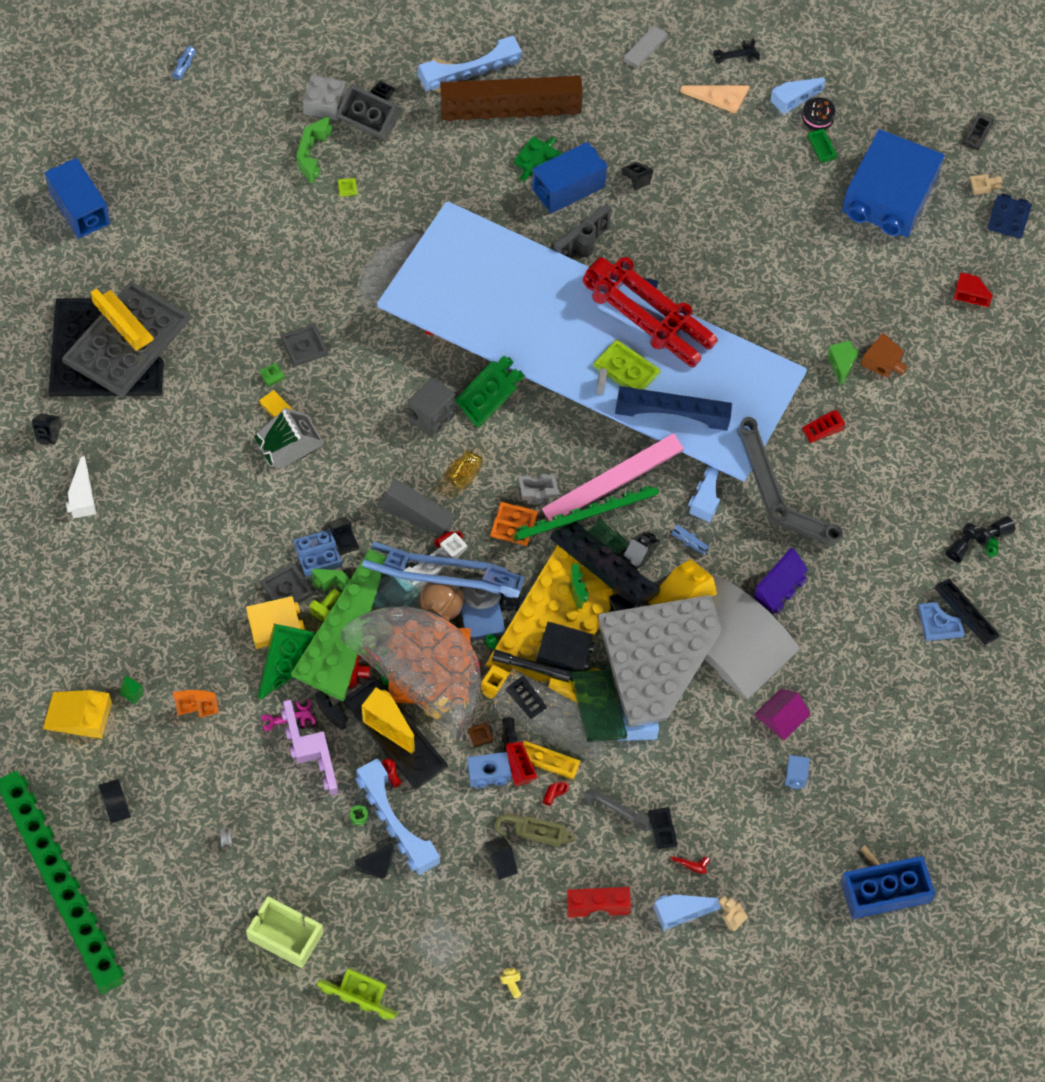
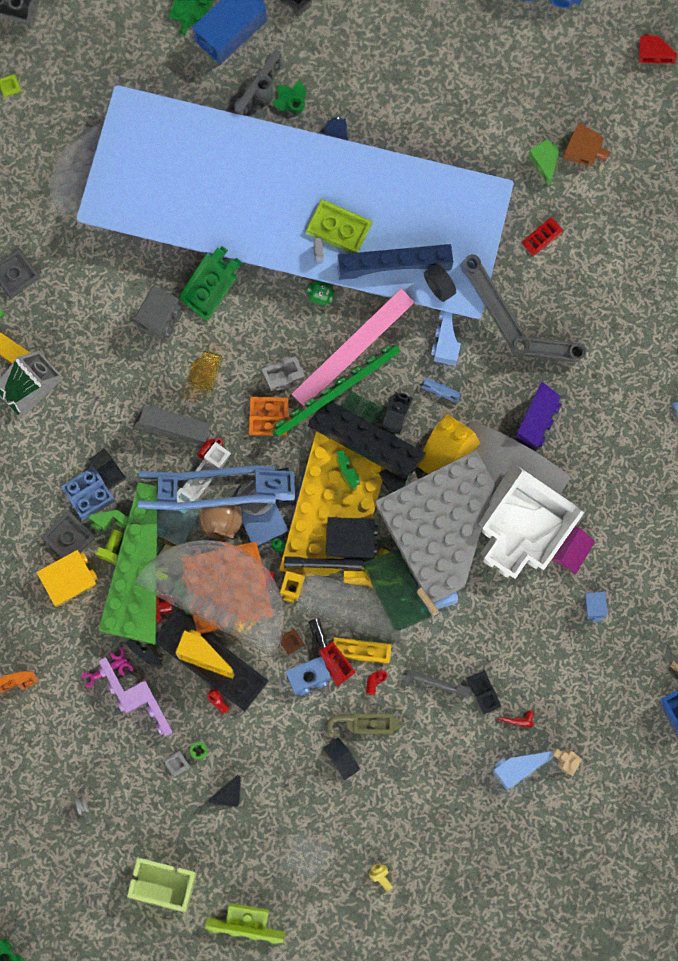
camera: 10 degrees left, 15 degrees up
(283, 654) = (86, 611): green tile -> none
(333, 823) = (176, 764): none -> light grey tile
(420, 853) = (267, 776): light blue arch -> none
(522, 681) = (325, 590): black slope -> none
(584, 901) = (442, 780): red arch -> none
(593, 425) = (320, 292): none -> green head
(599, 278) = (290, 132): red beam -> none
(610, 253) = (289, 96): none -> green plate
(626, 720) = (428, 602): none -> tan piece
(712, 435) = (440, 282): none -> black tyre
(743, 674) = (525, 523): none -> white panel

